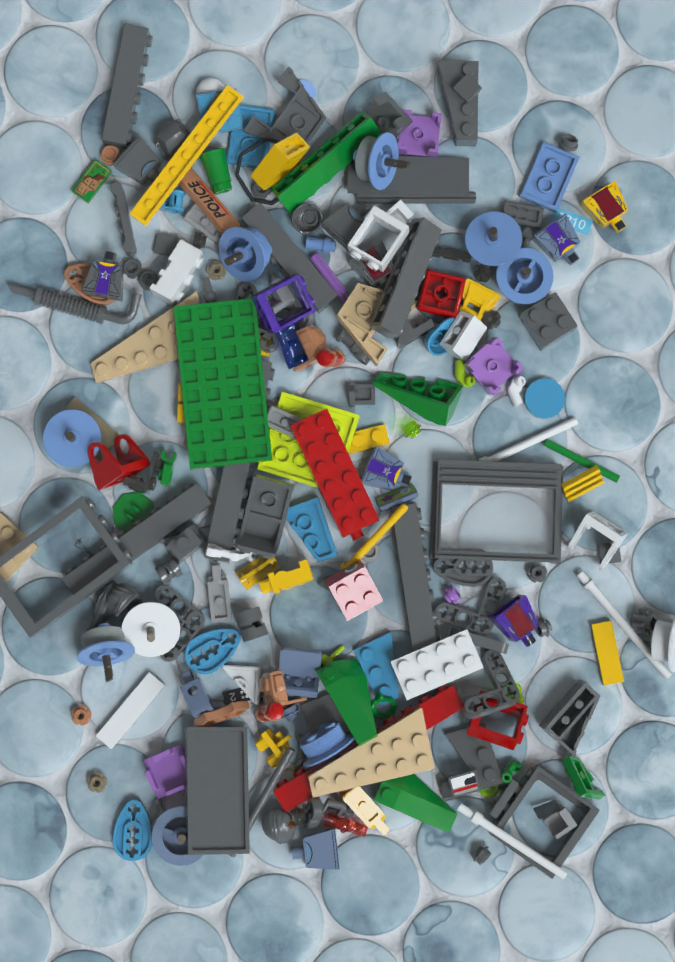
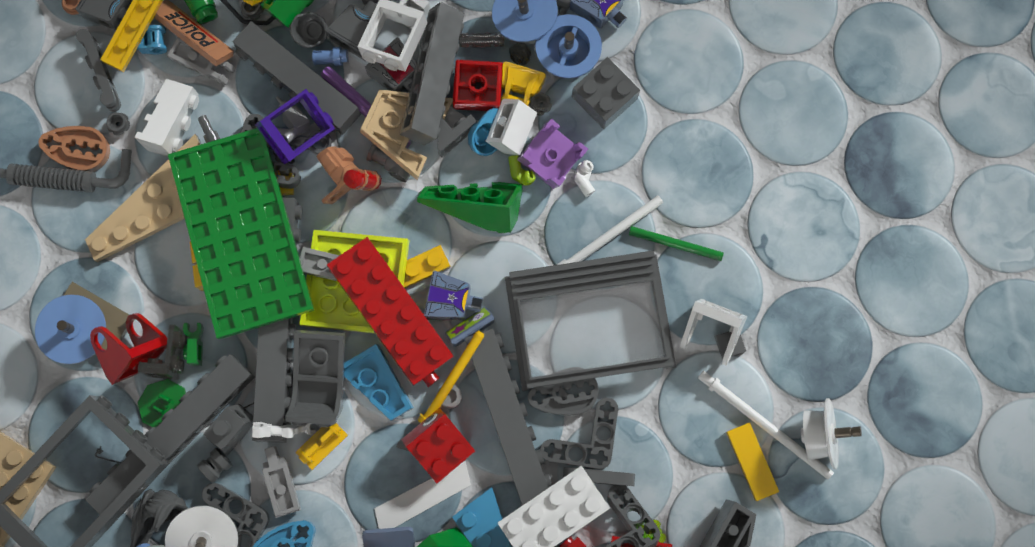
camera: 10 degrees left, 5 degrees down
(91, 181) = (56, 35): tile -> none
(105, 279) = (85, 139): torso -> none
(147, 274) = (132, 130): dark grey plate -> none
(165, 244) = (149, 89): dark grey tile -> none
(199, 240) = (190, 77): clear smoke plate -> none
(216, 275) = (221, 108): dark tan plate -> none
(244, 252) = (241, 79): medium blue piece -> none
(251, 624) = (323, 510): dark grey wheel -> none
(287, 580) = (356, 448): yellow hips -> none
(291, 346) = (314, 174): clear blue hinge -> none
(325, 660) = (421, 535): lime hand -> none
(331, 630) = (421, 498): none -> white sticker
(361, 394) = (407, 216): dark grey tile -> none
(411, 429) = (473, 245): clear neon green plate -> none
(451, 594) = (556, 428): medium lavender plate -> none
(516, 620) = (638, 443): torso -> none
(542, 572) = (650, 389): dark grey plate -> none
(544, 398) = (619, 181): dark azure tile -> none
(544, 627) = (670, 446): dark grey plate -> none
(581, 485) = (682, 271): yellow tile -> none
(643, 621) = (788, 415): dark grey gear -> none

